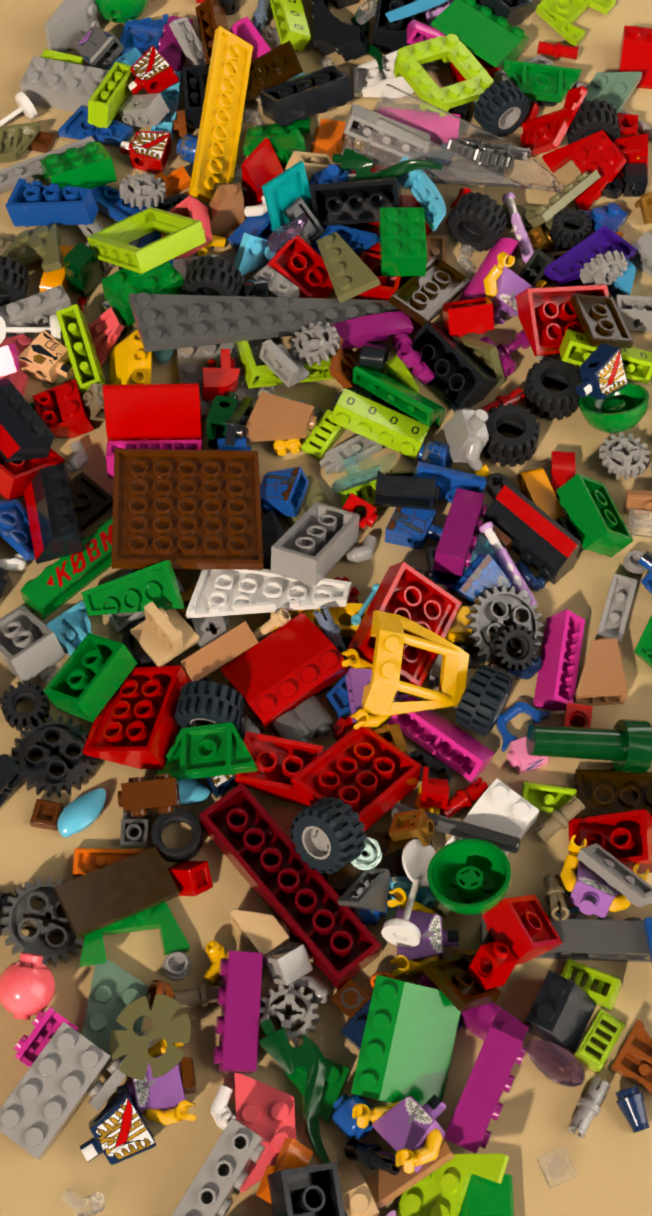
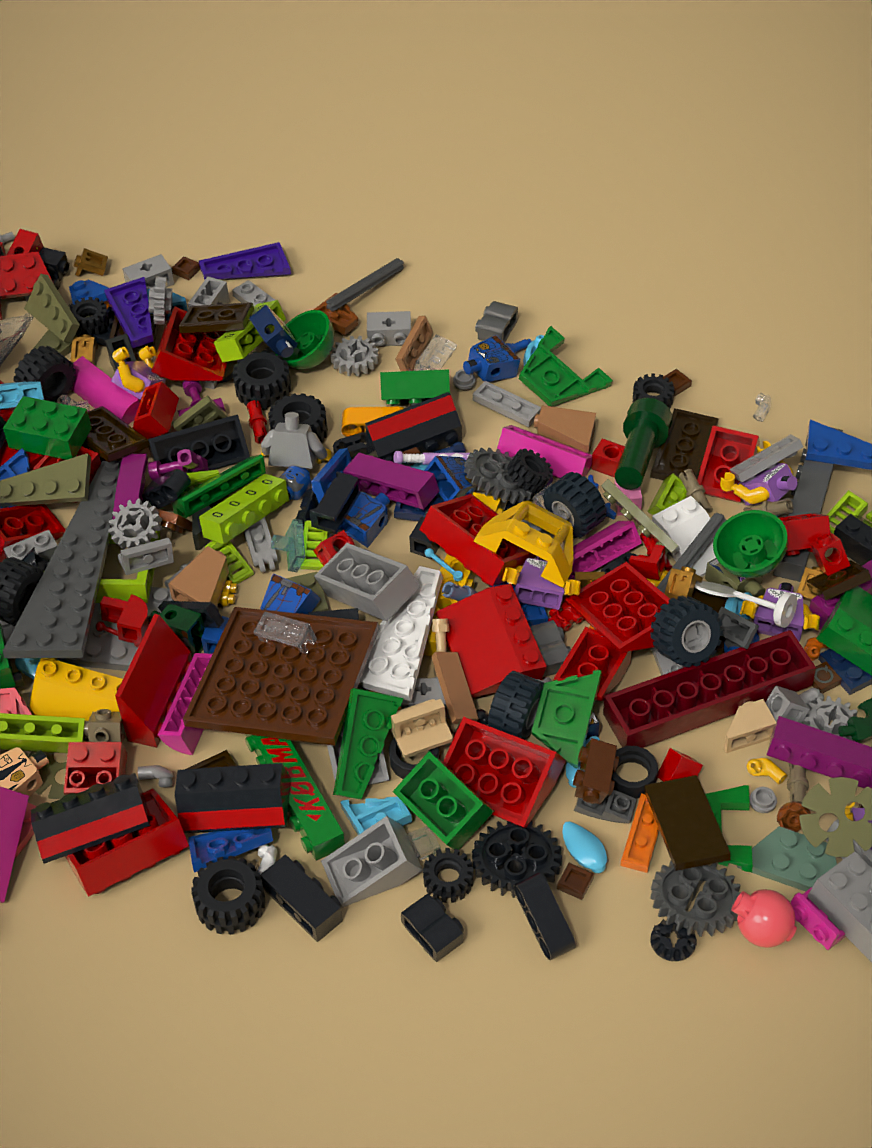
camera: 70 degrees left, 10 degrees down
(220, 491) = (285, 631): none -> clear hinge
(480, 765) = (631, 512): none -> olive wing
(520, 232) = (92, 355): lavender piece -> none
(561, 468) = (347, 397): red slope -> none

